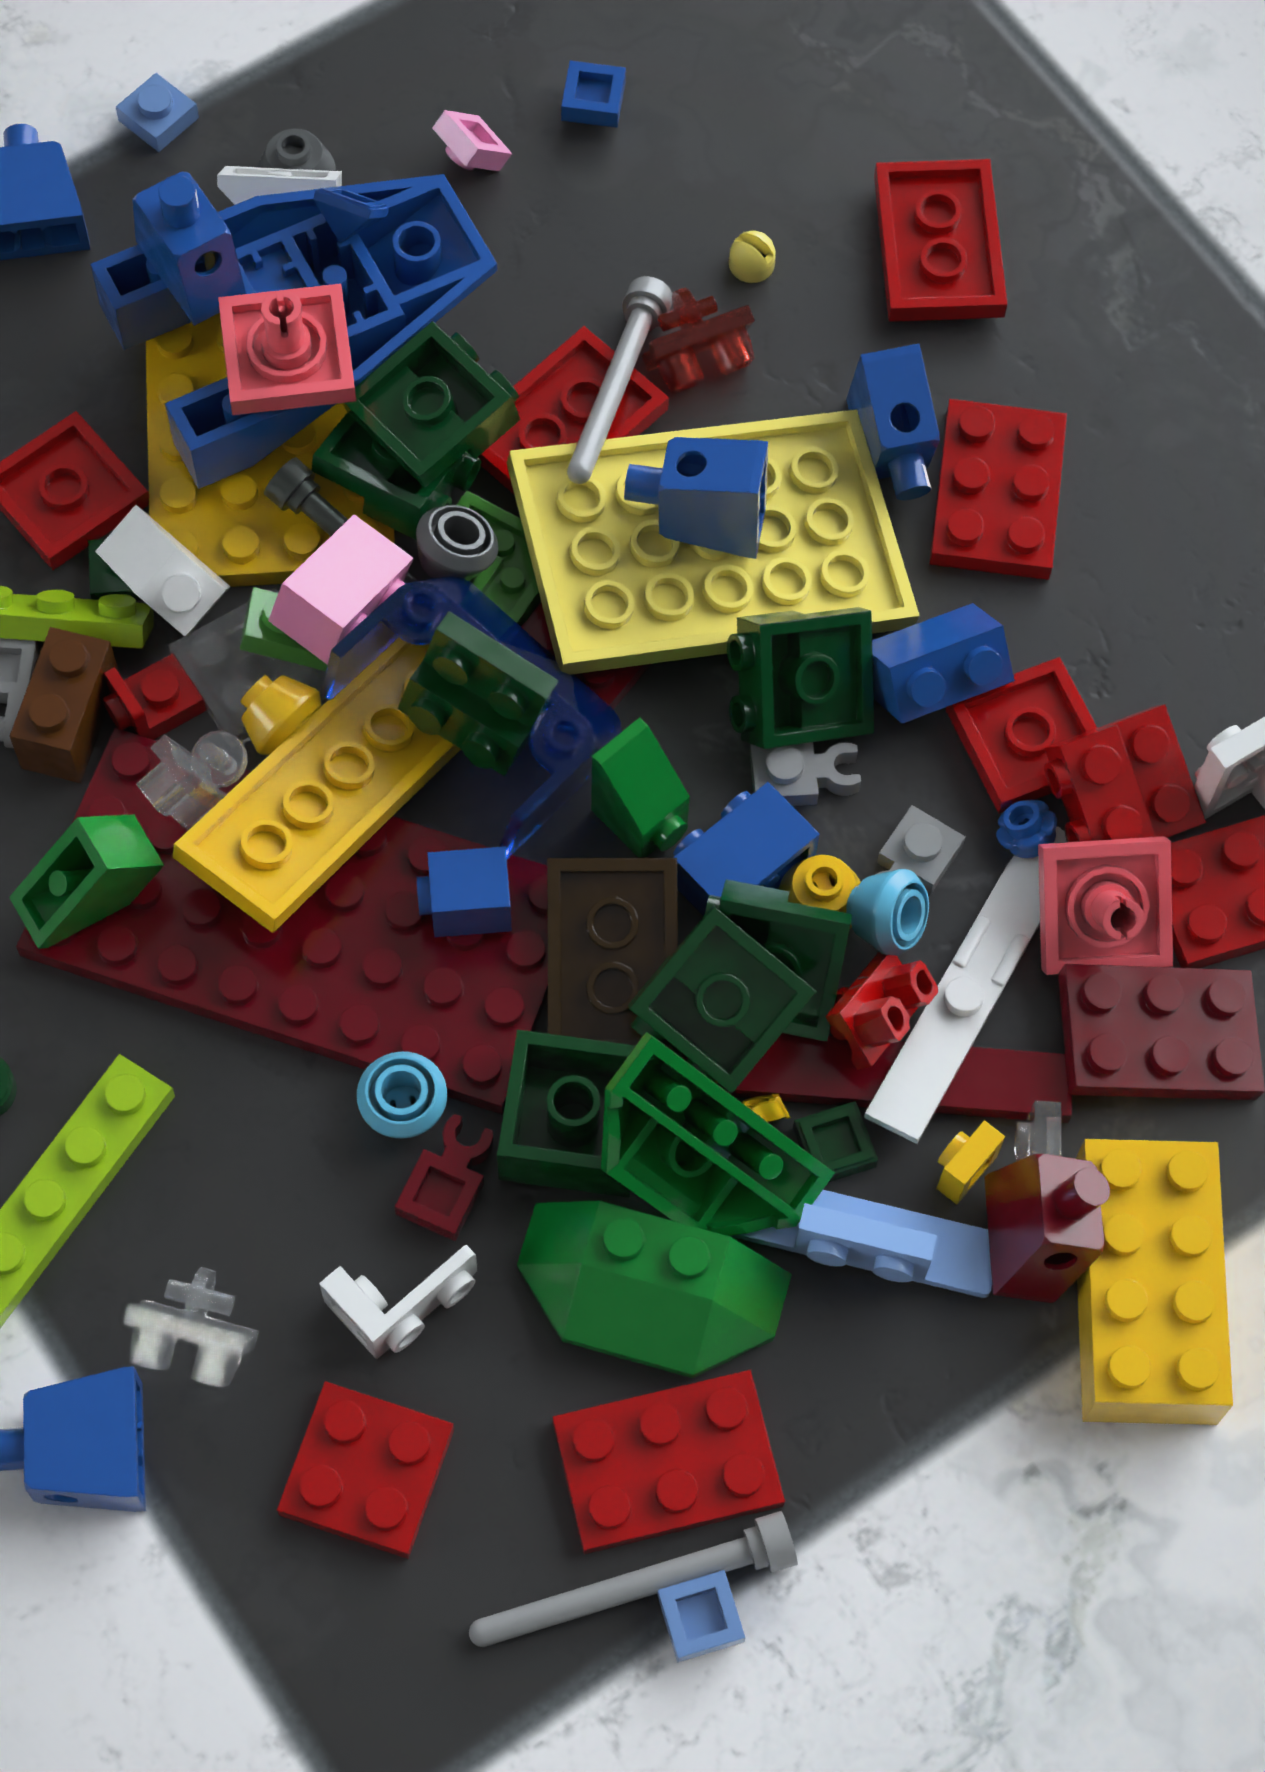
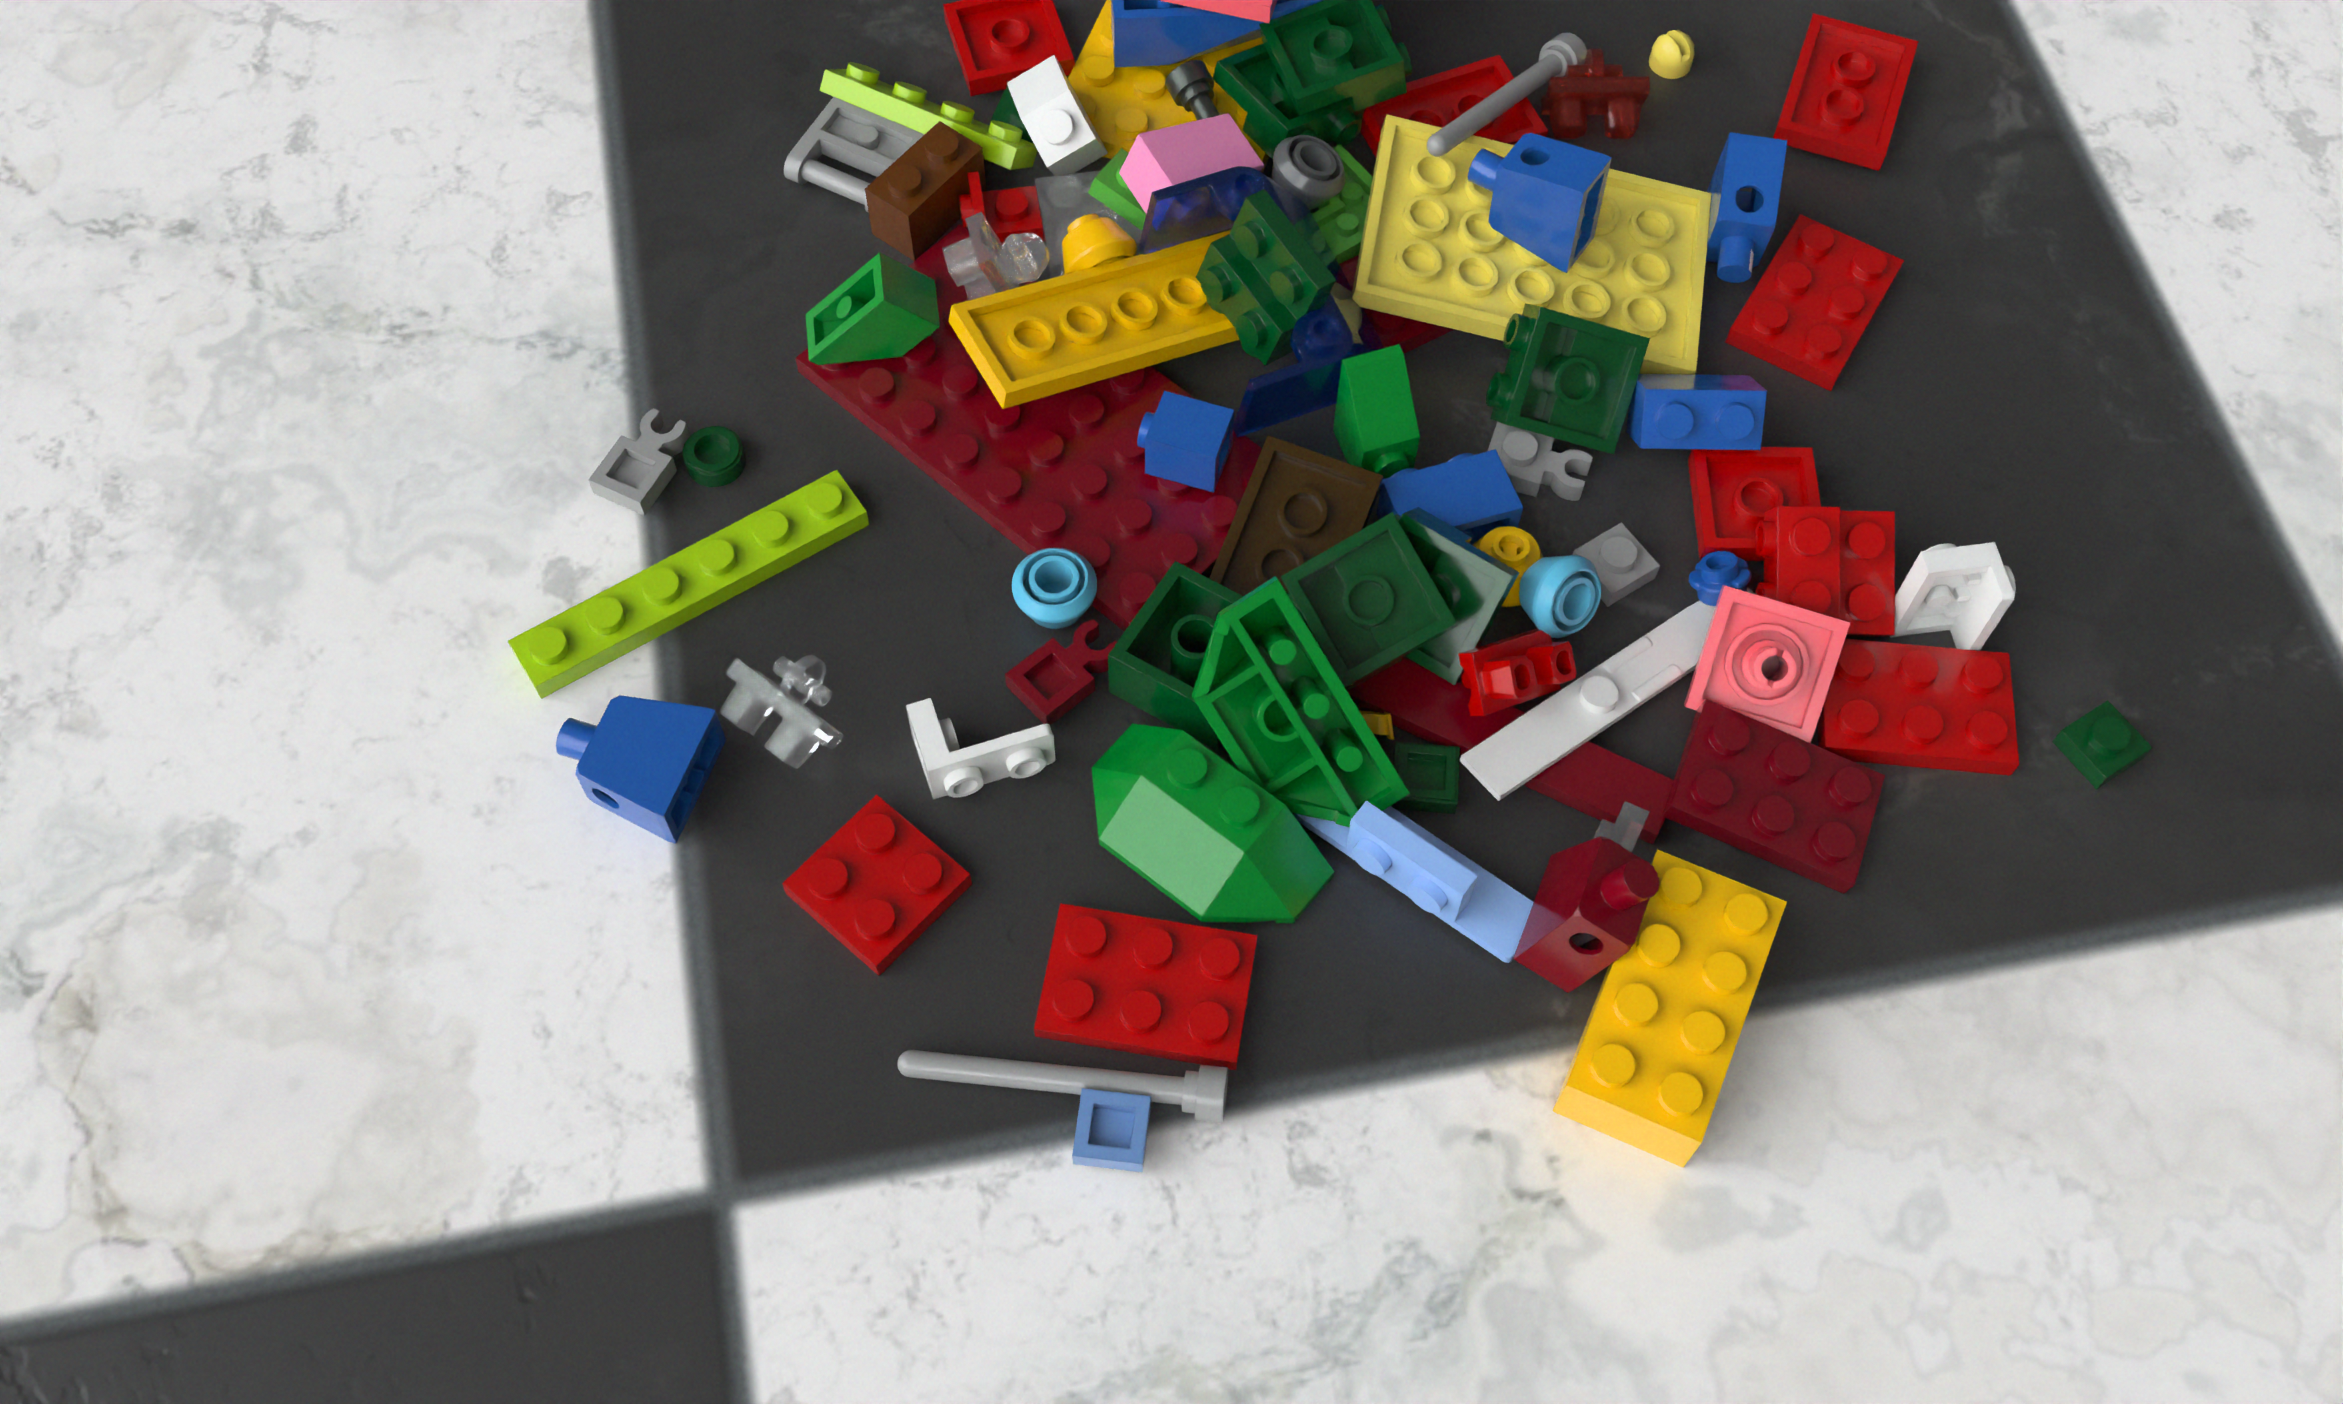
camera: 25 degrees right, 5 degrees down
(967, 1160) = (1540, 834): yellow plate -> none

